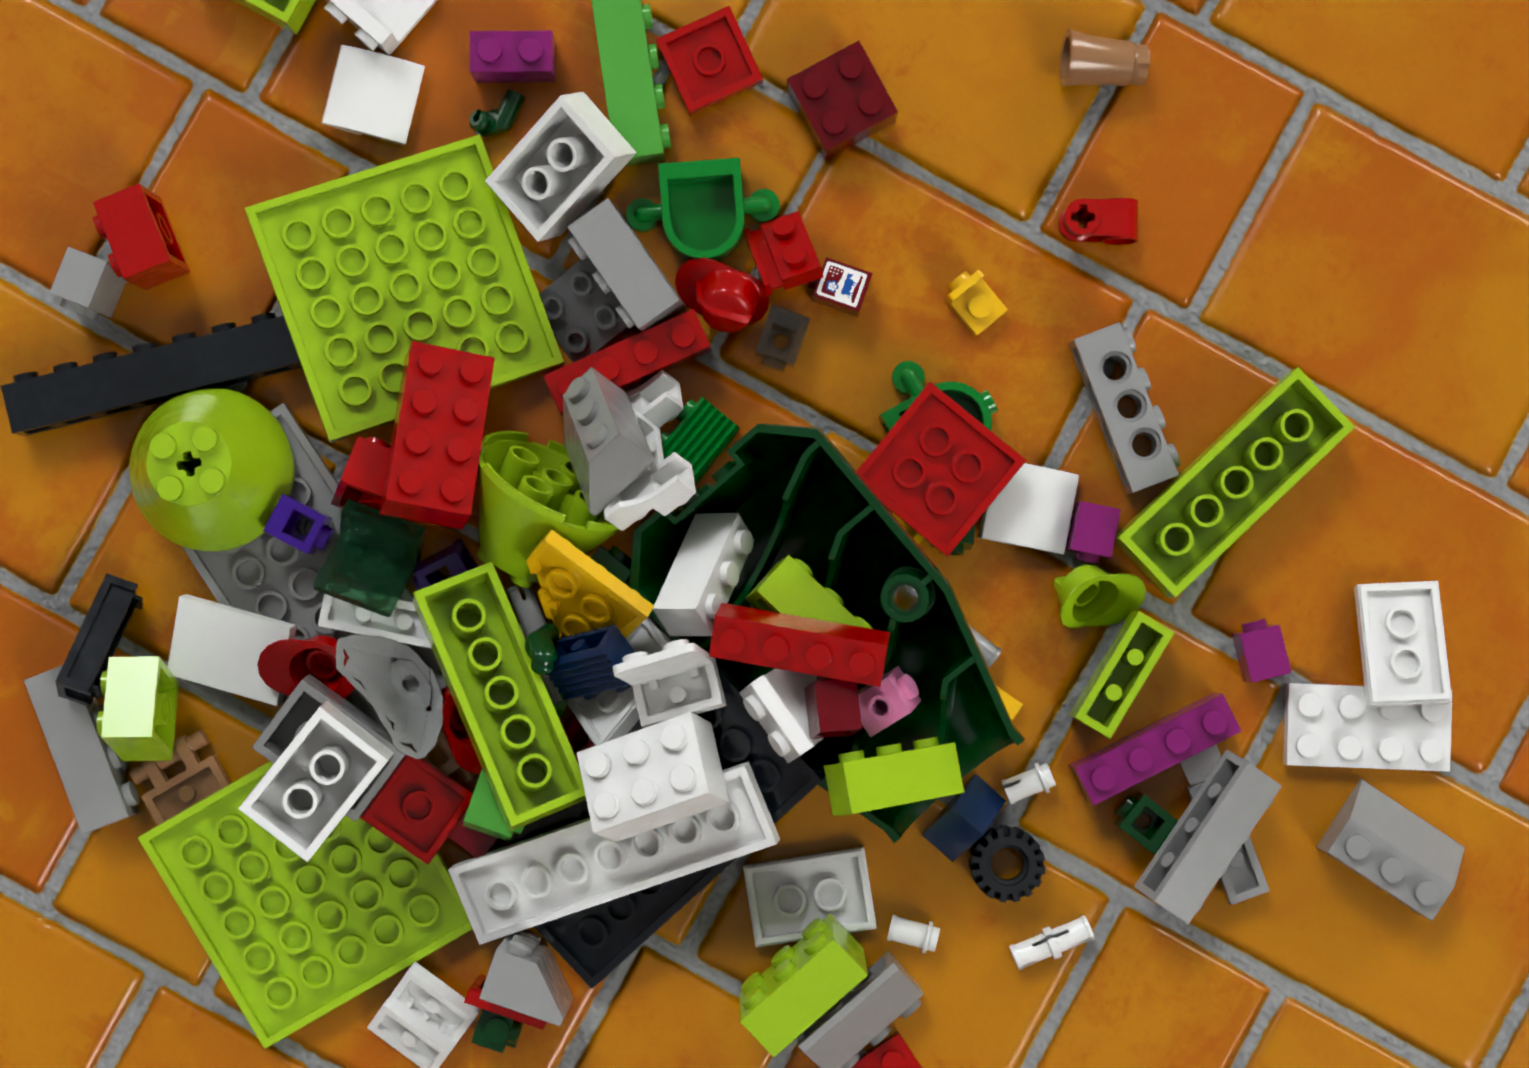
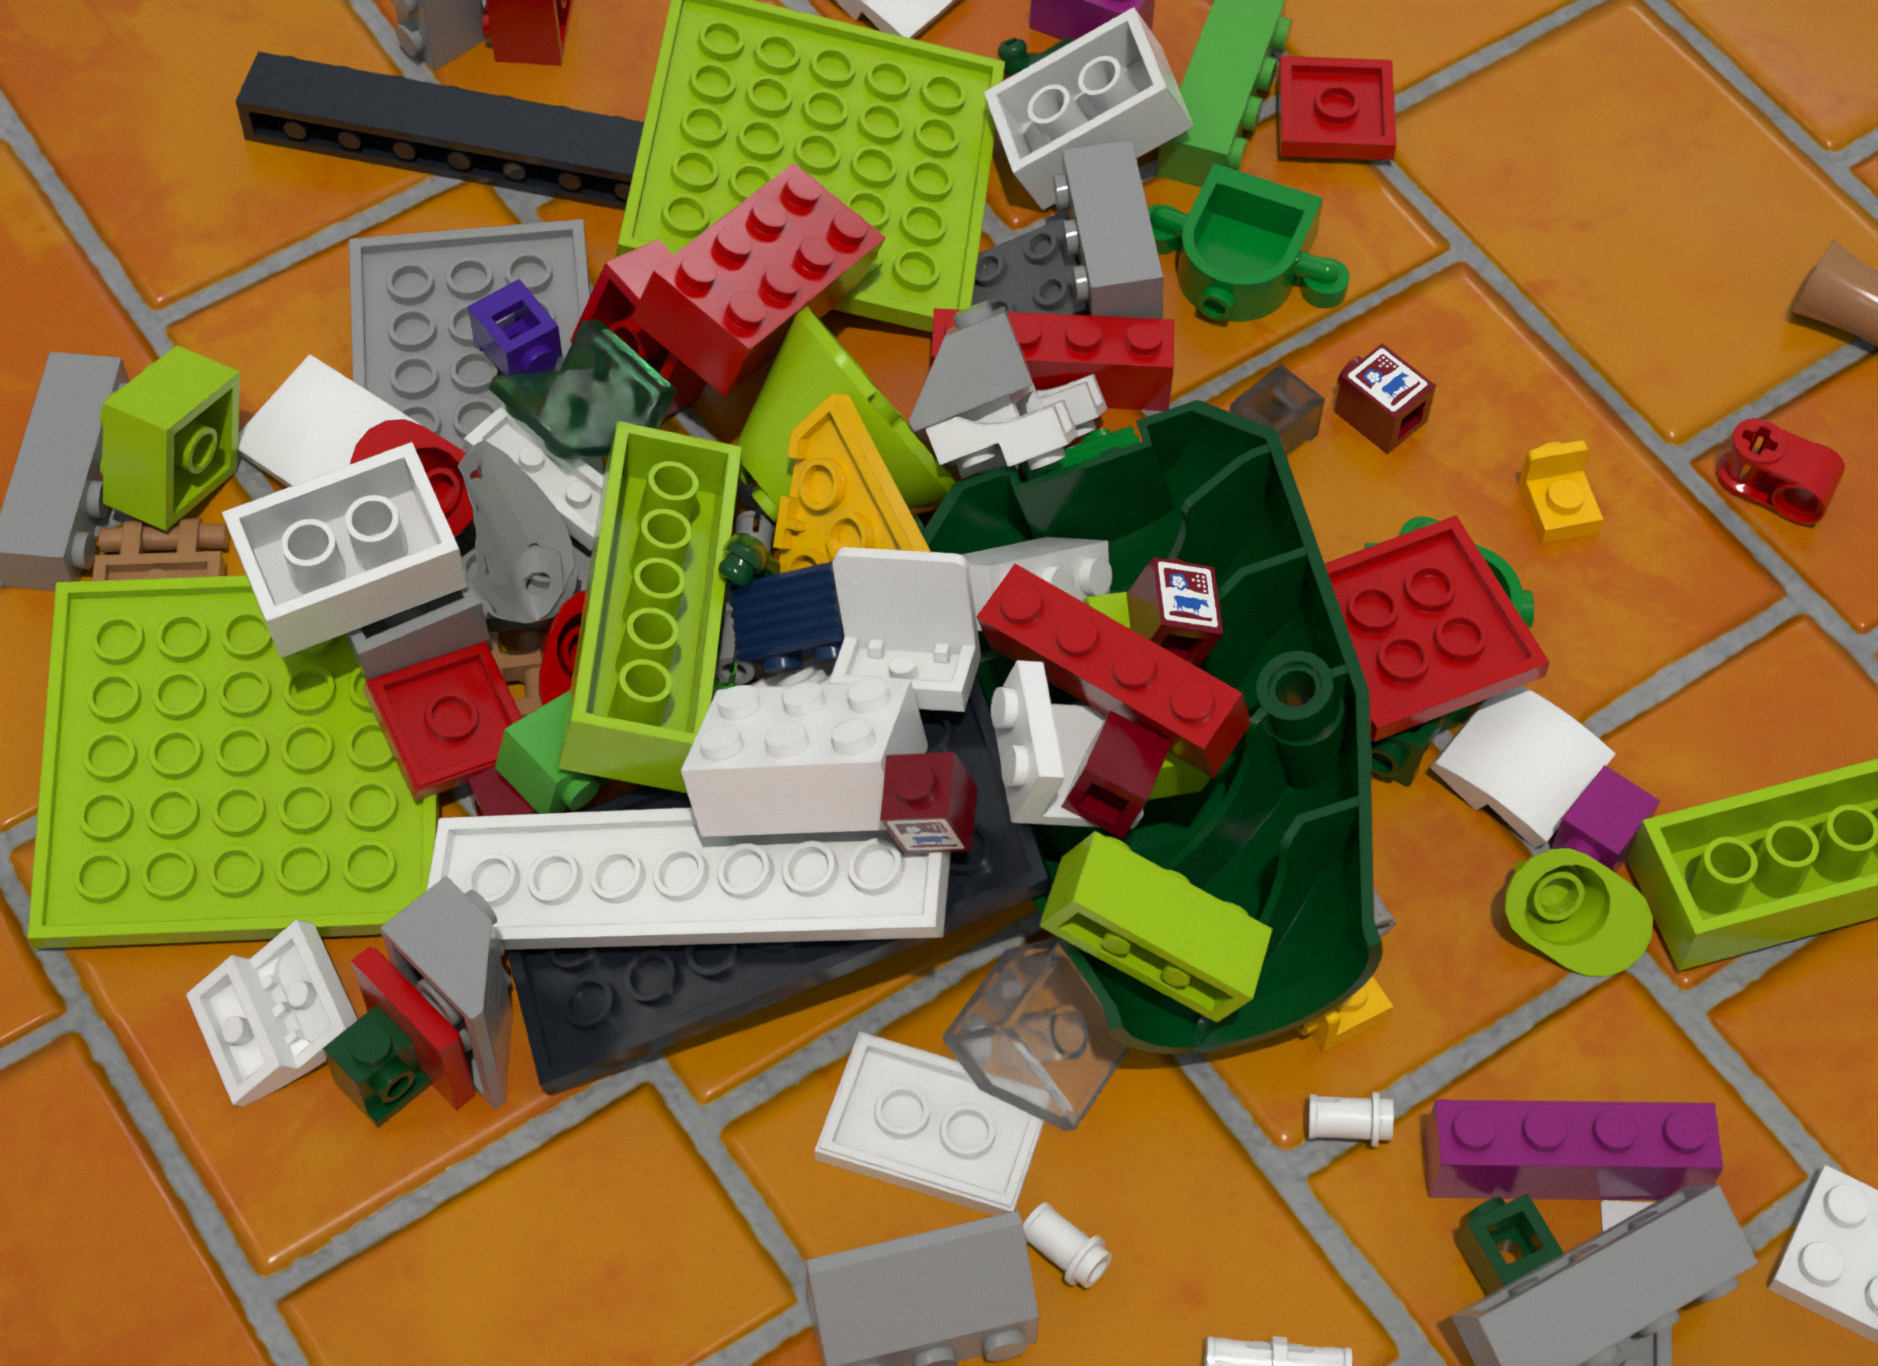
camera: 25 degrees right, 30 degrees down
(97, 640) = (214, 326): black container -> none
(210, 469) = (440, 225): lime cone -> none
(721, 294) = (1221, 337): red piece -> none
(742, 788) = (929, 802): none -> dark red brick
(783, 253) = (1328, 323): red plate -> none
(801, 984) = (854, 1195): lime brick -> none
(812, 577) = (1177, 607): none -> dark red brick
(839, 842) = (1037, 1035): none -> clear slope
(841, 100) = (1488, 206): dark red brick -> none
(889, 702) = (1197, 836): bright pink brick -> none
(964, 818) = (1223, 1122): dark blue slope -> none
(1031, 868) = (1275, 1176): black tyre -> none
(1121, 673) = (1564, 1018): lime brick -> none
(1134, 470) = (1705, 613): light grey brick -> none
(1261, 651) = (1797, 1098): magenta brick -> none

